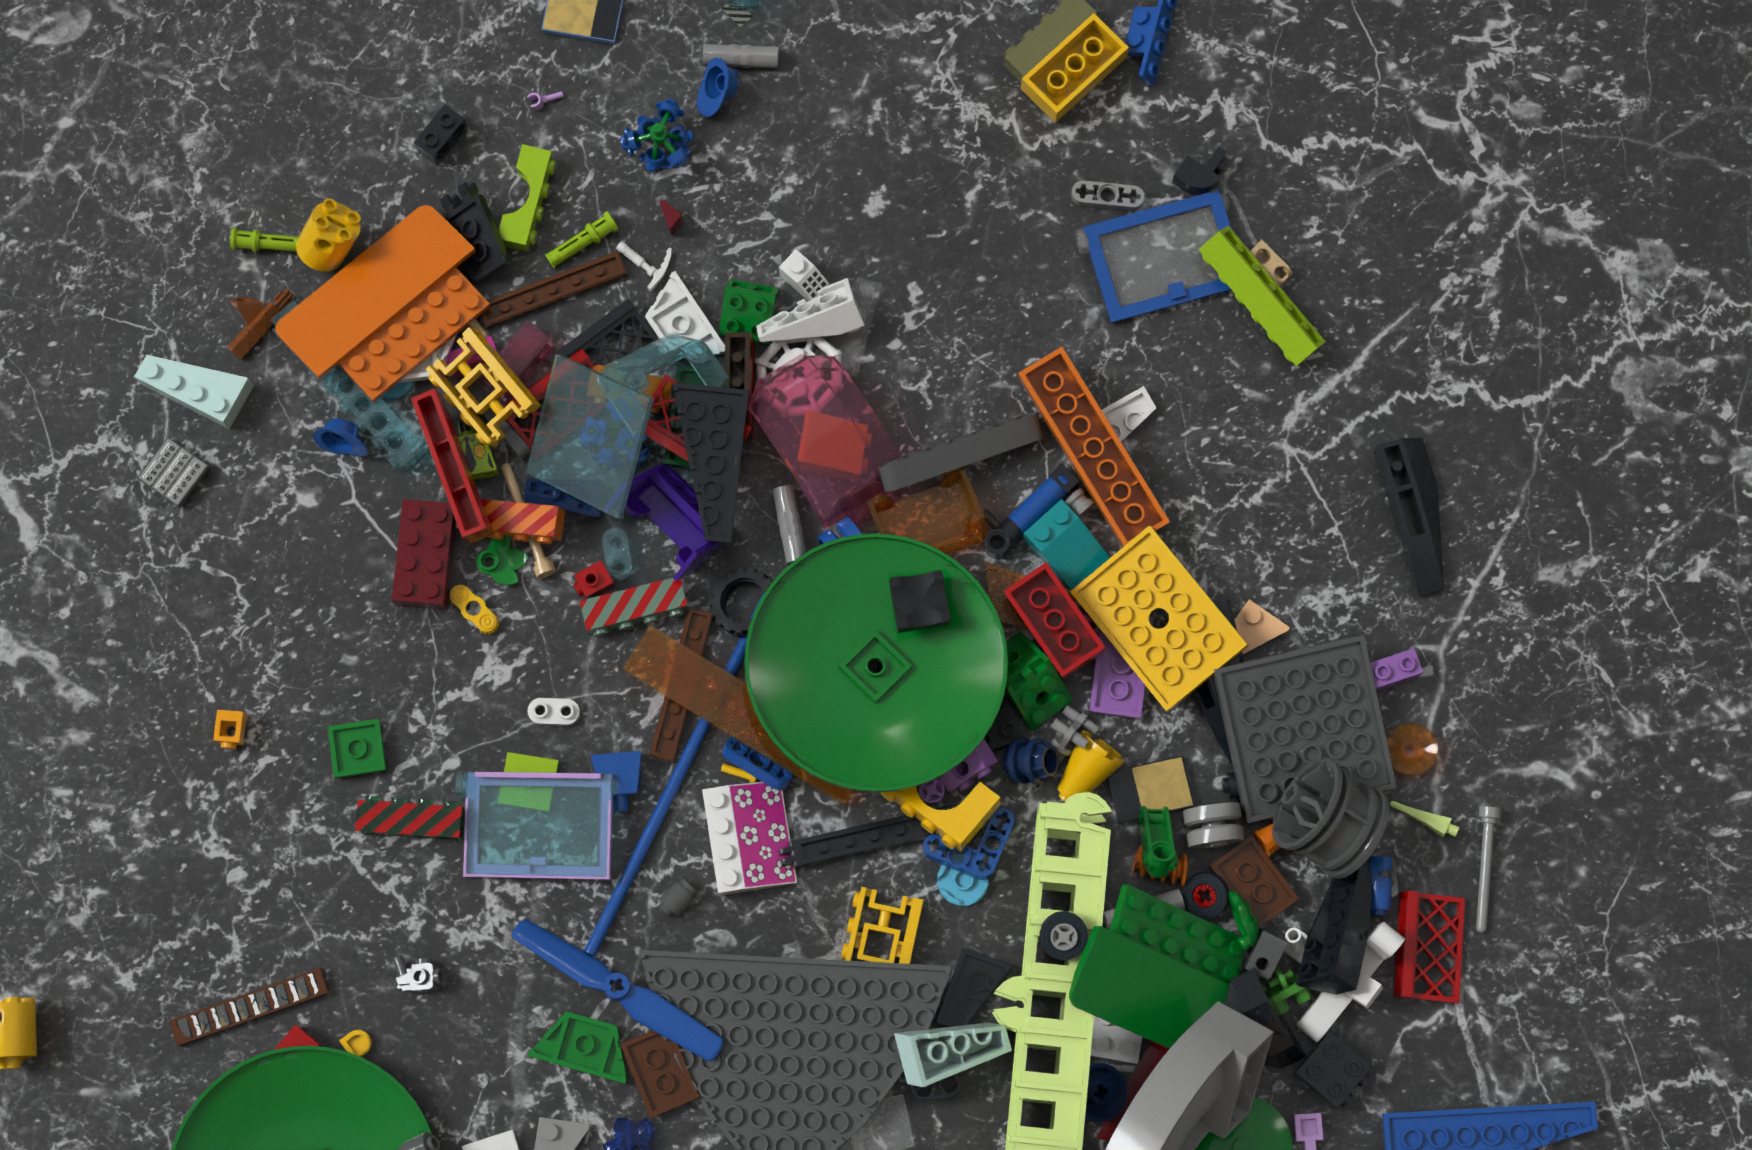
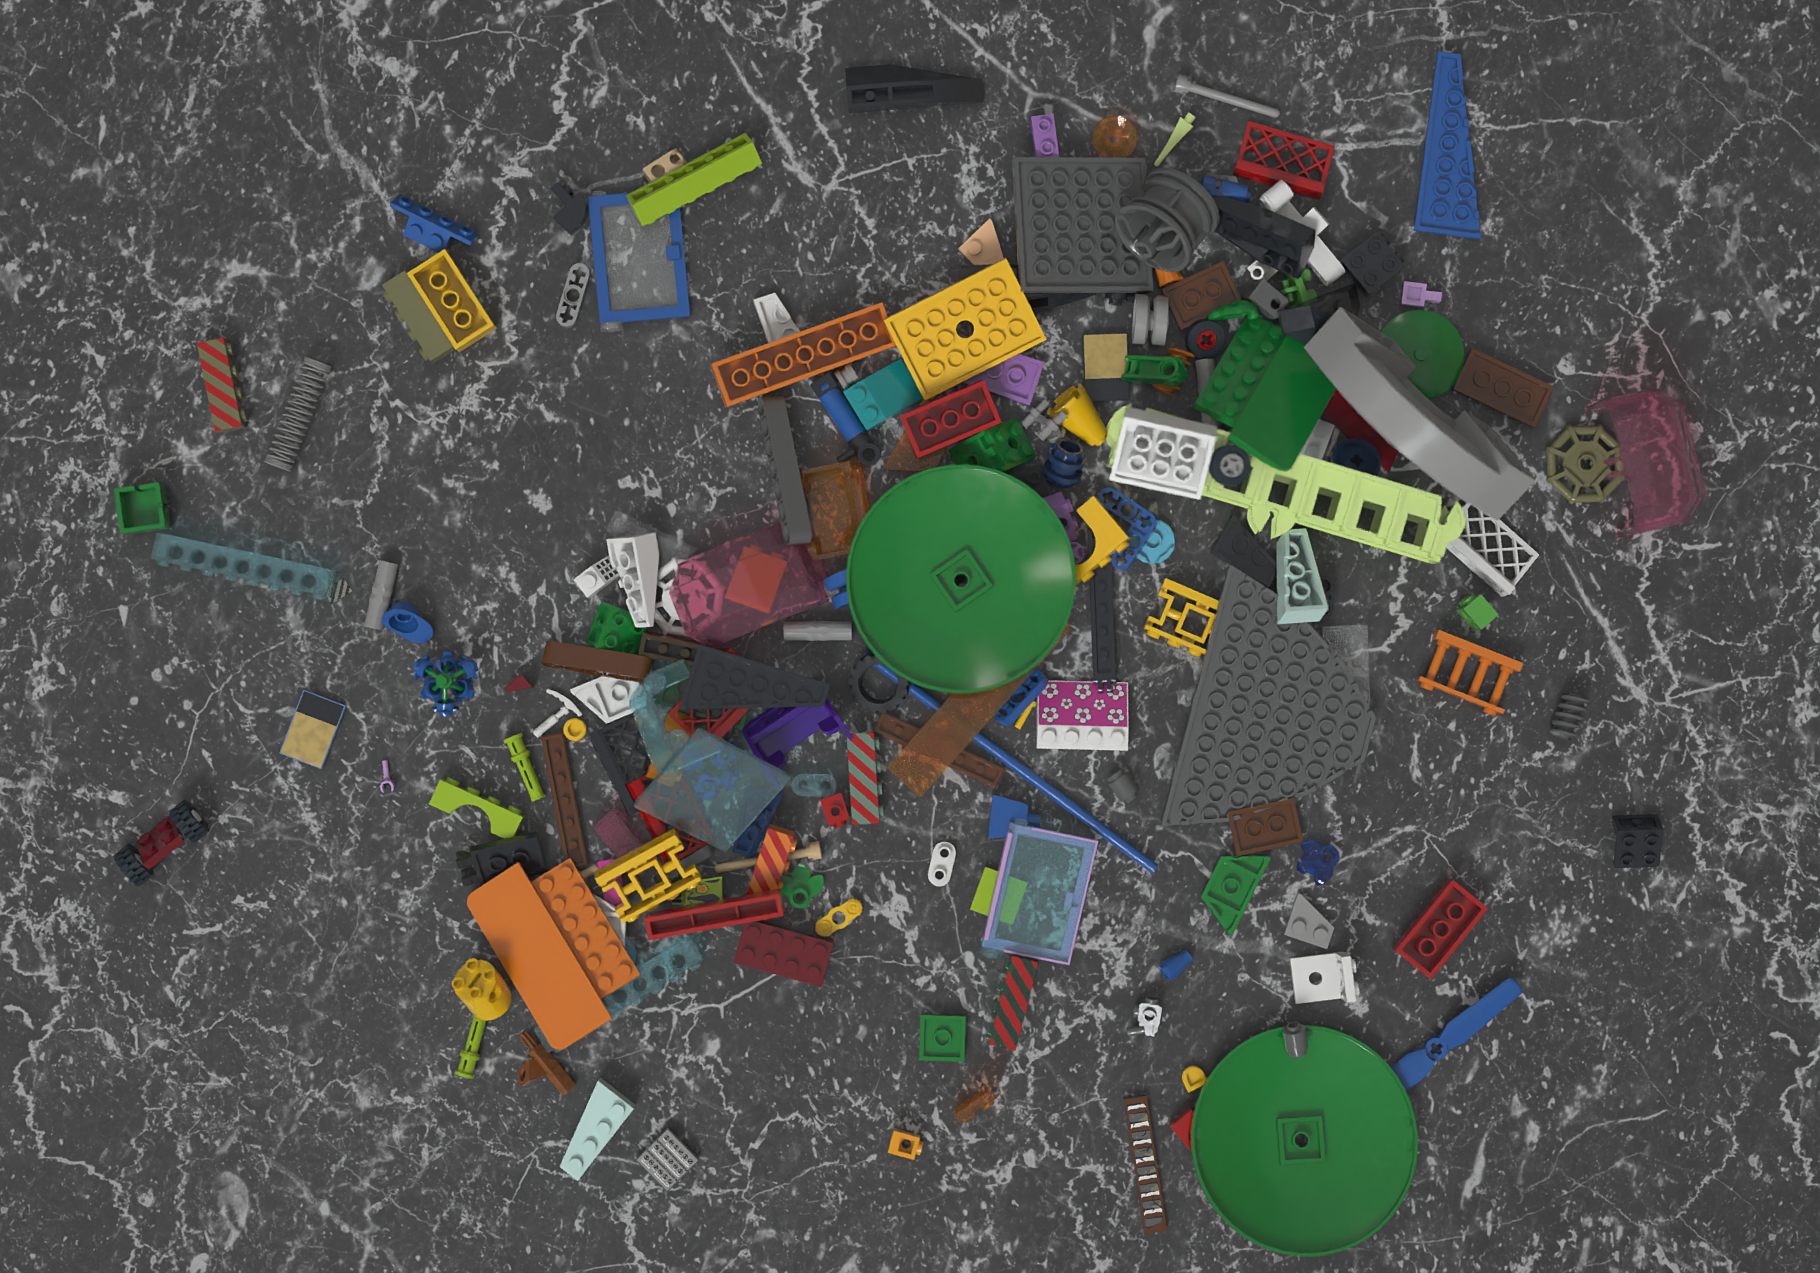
camera: 80 degrees left, 10 degrees up
(280, 790) = (967, 1109): none -> clear orange plate
(340, 438) = (664, 1008): blue piece -> none
(441, 135) = (404, 875): black brick -> none
(483, 997) = (1175, 965): none -> blue cone
(632, 286) = (575, 729): none -> yellow tile
(639, 1002) = (1205, 834): blue piece -> none
(710, 291) = (596, 661): none -> reddish brown beam
(919, 601) = (916, 531): black brick -> none
(1062, 856) = (1163, 453): none -> white slope

